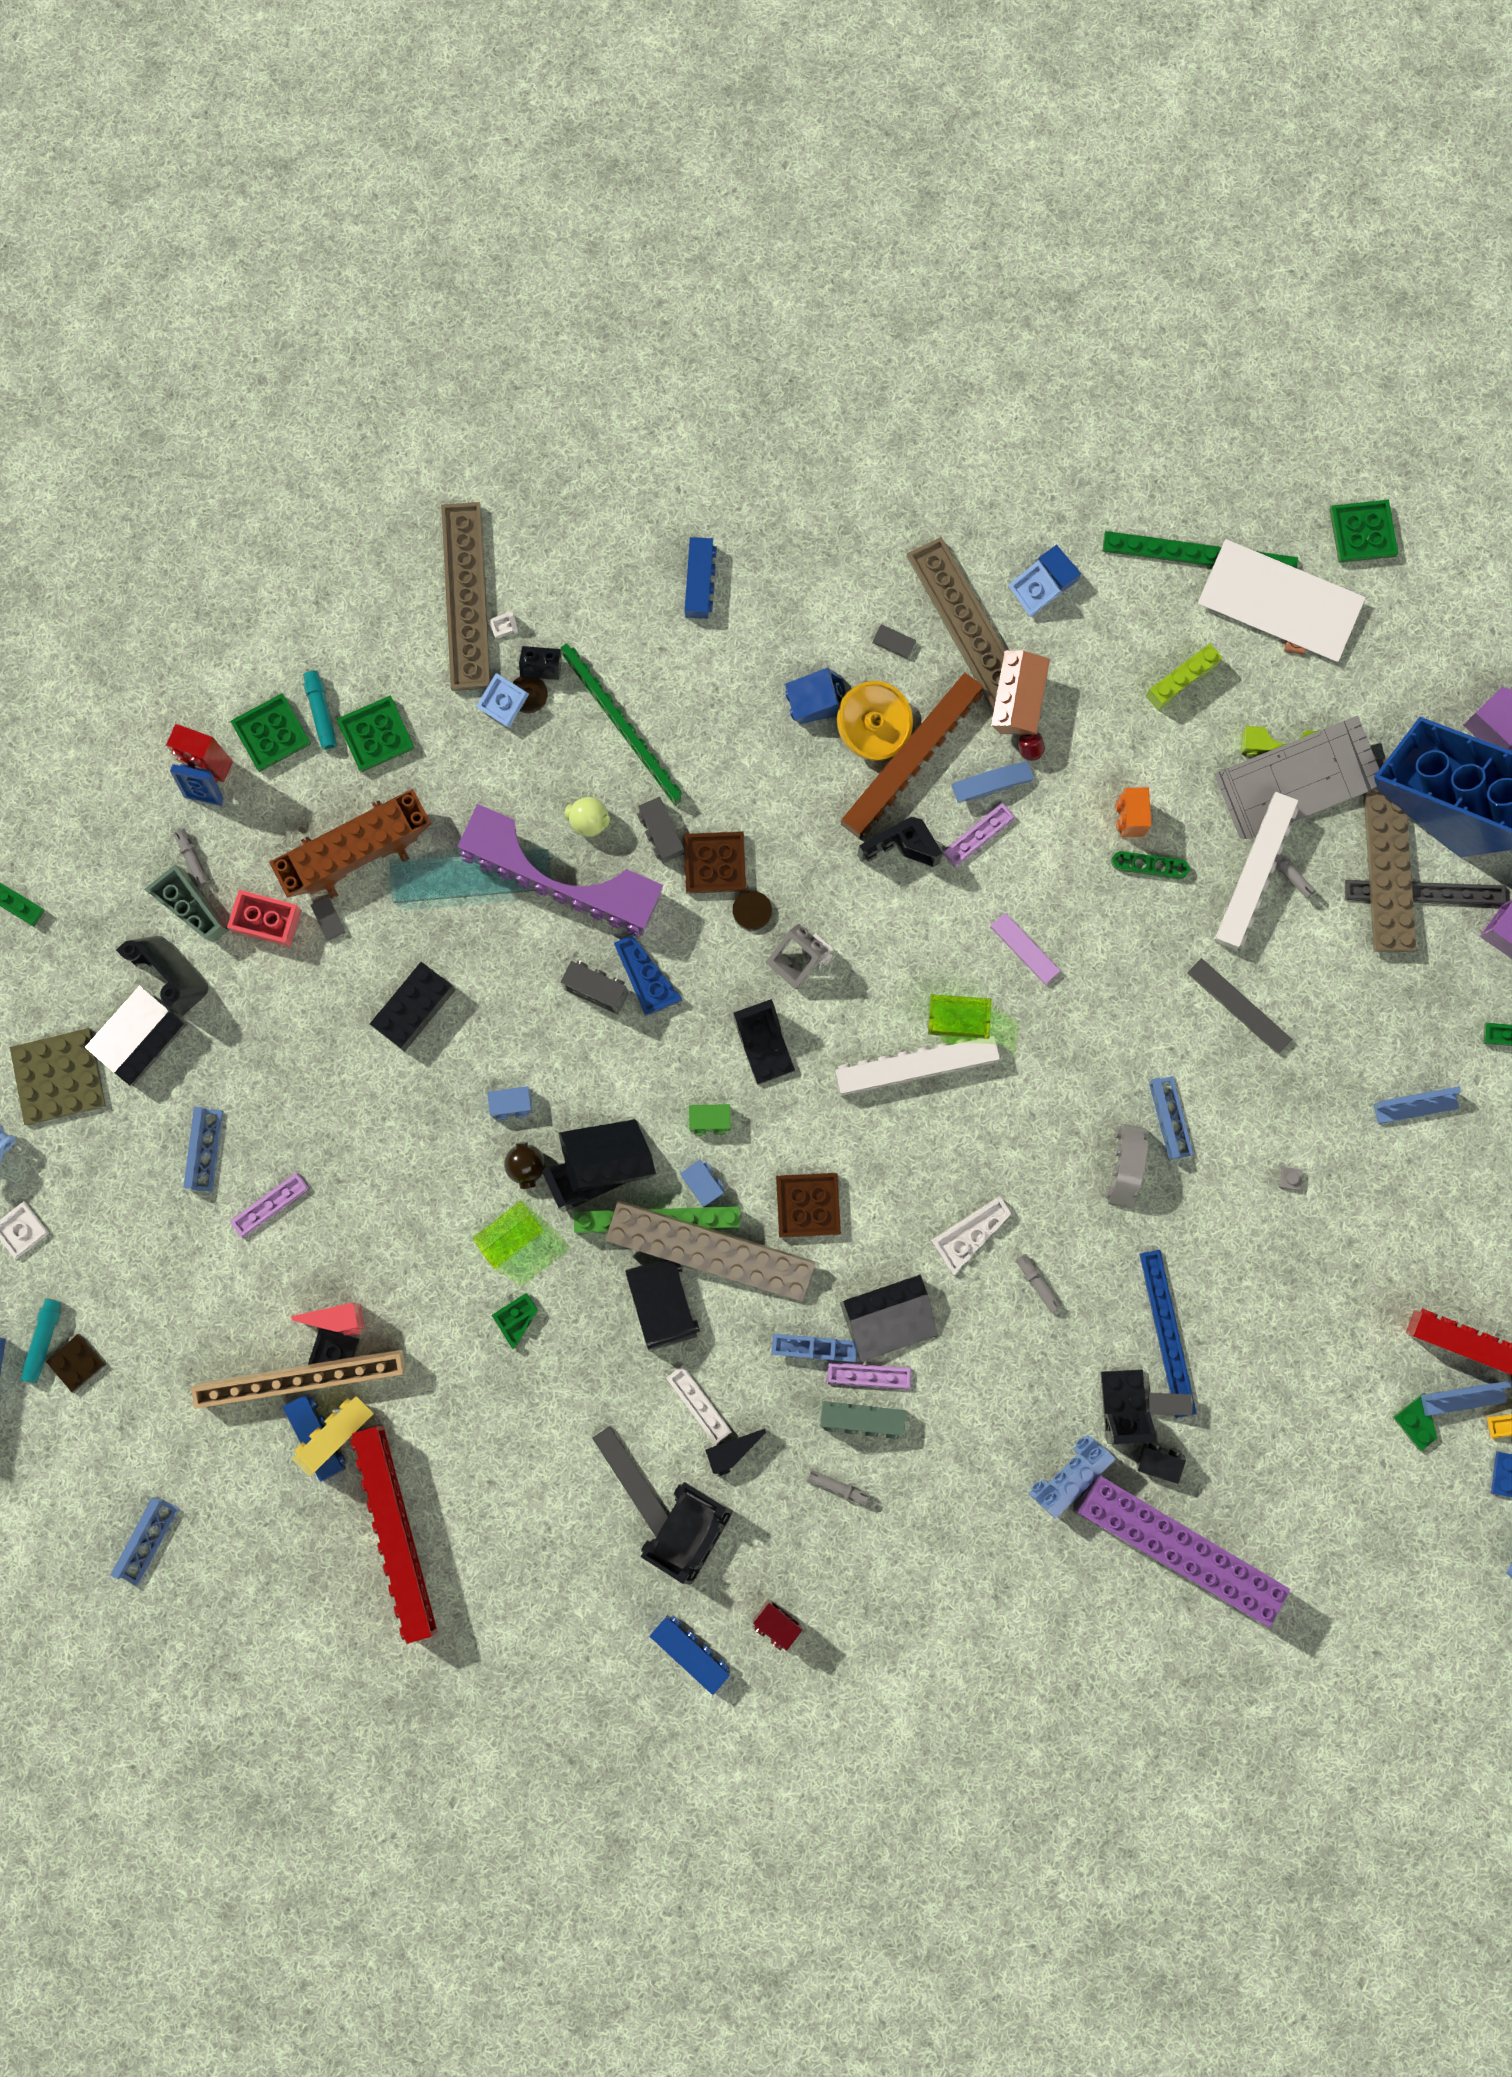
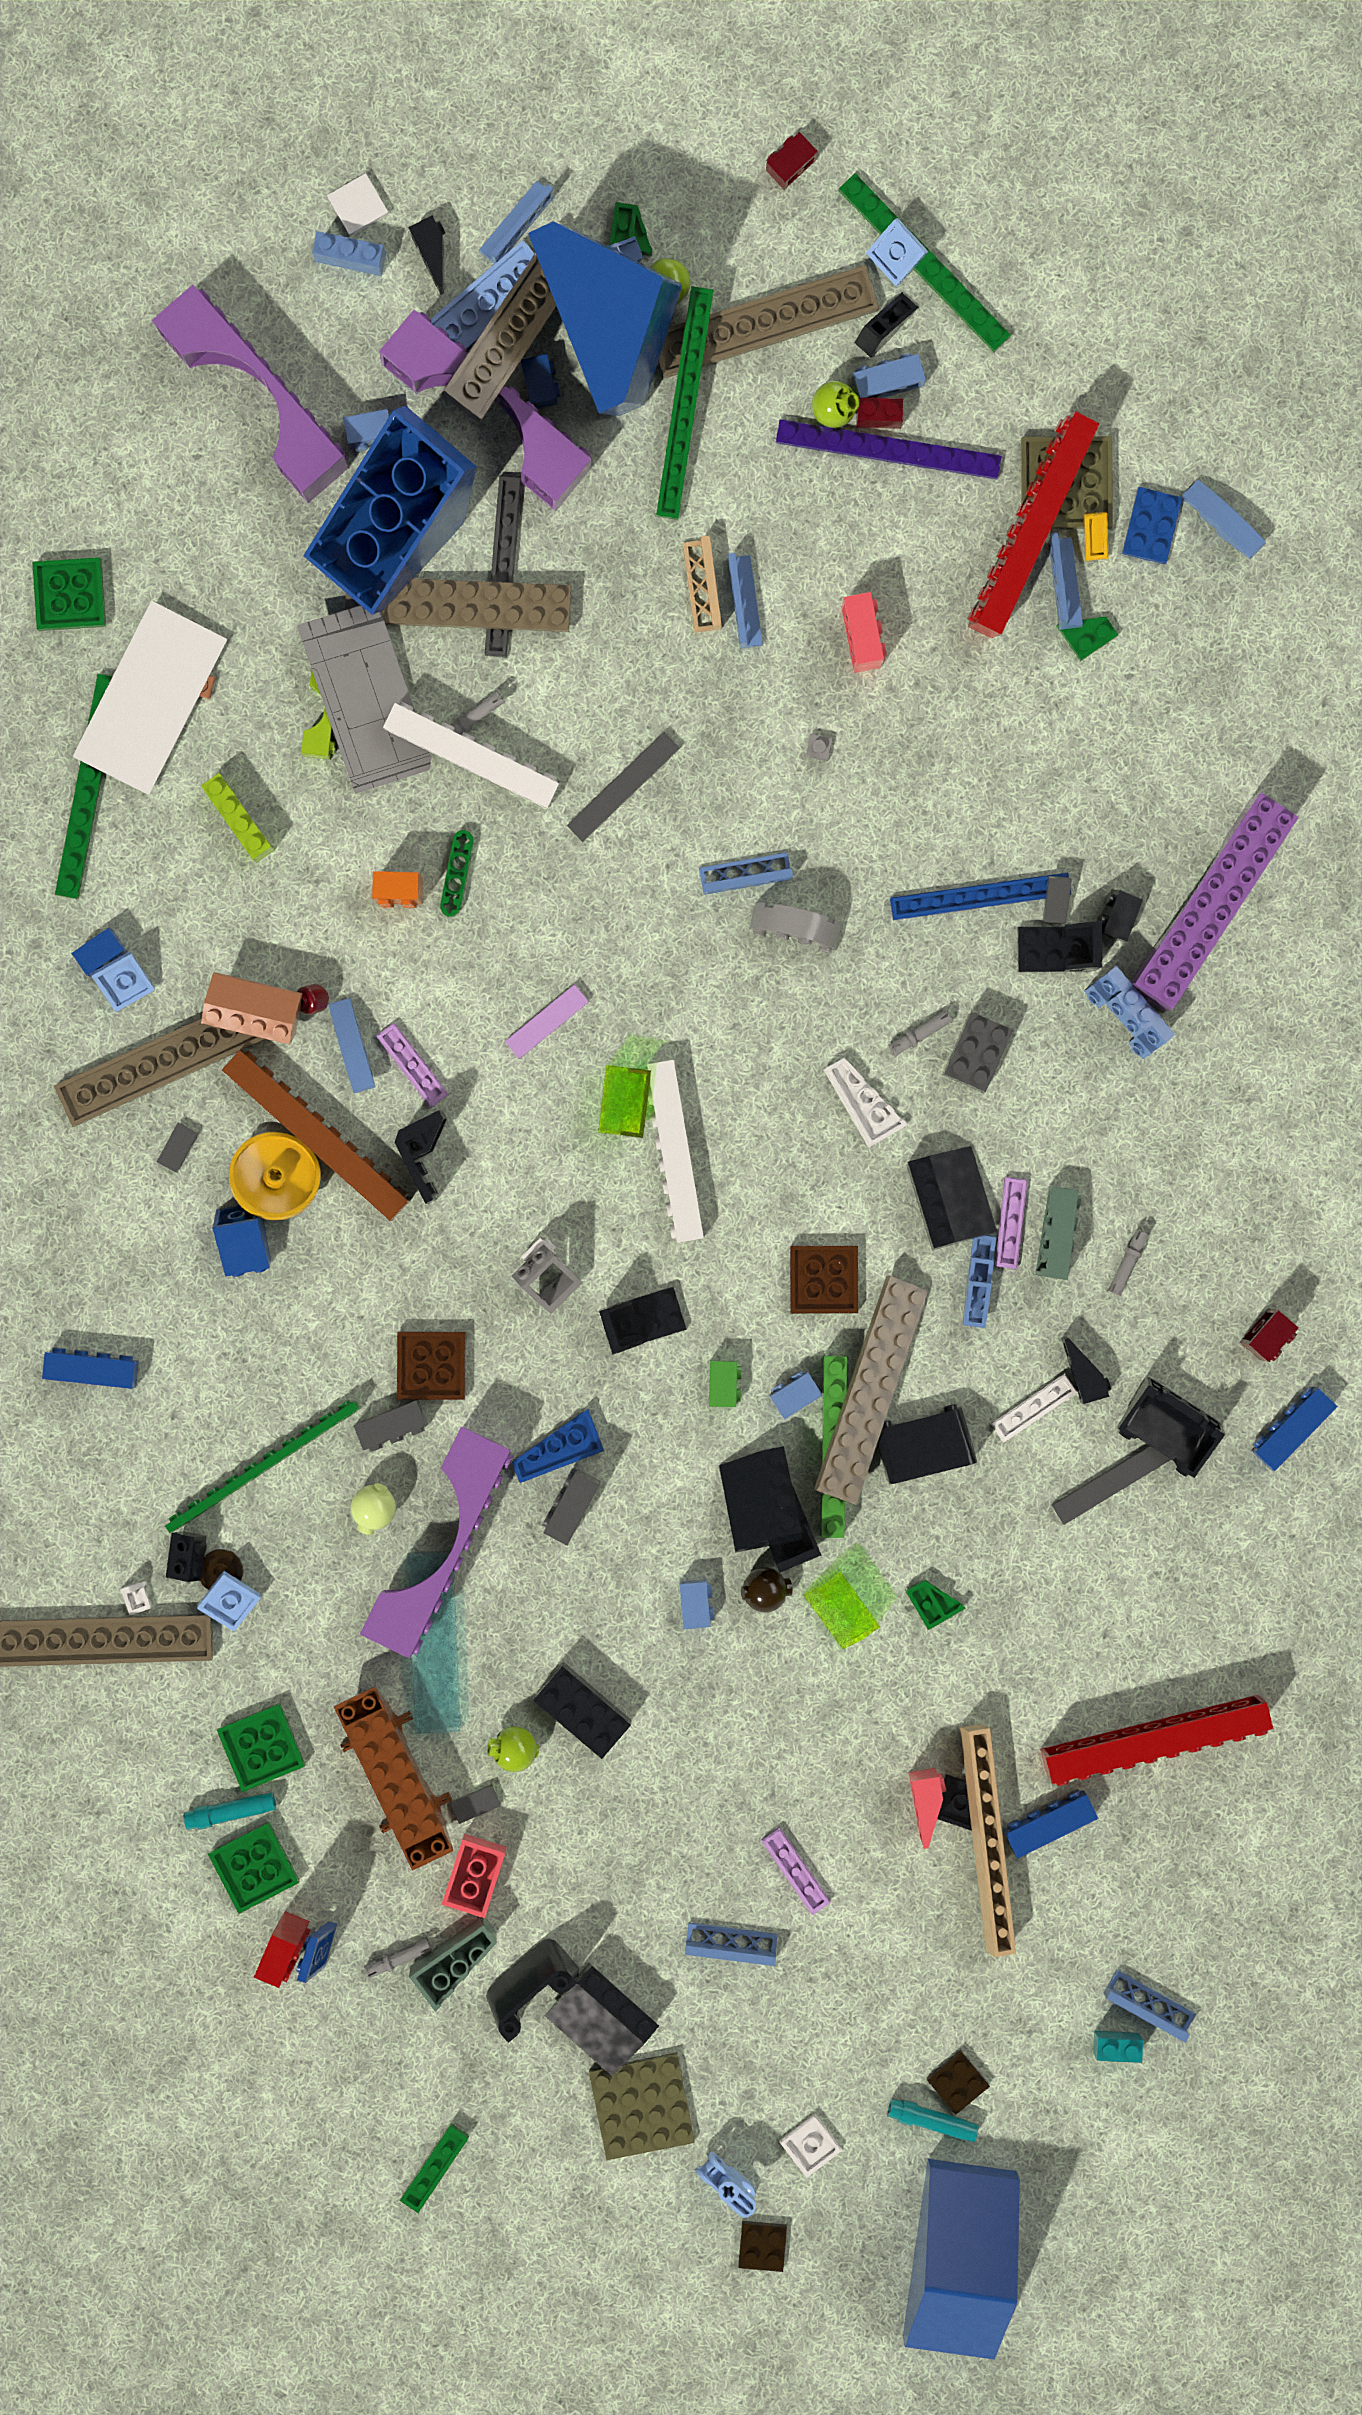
camera: 85 degrees left, 10 degrees up
(107, 1511) = (1118, 2046): none -> teal brick
(332, 1436) = (1052, 1804): light yellow brick -> none
(377, 947) = (513, 1749): none -> lime brick
(752, 910) = (488, 1325): dark brown tile -> none
(1024, 1335) = (977, 1052): none -> dark grey brick
(1401, 1212) = (863, 632): none -> coral brick
(1432, 1073) = (710, 580): none -> tan fence

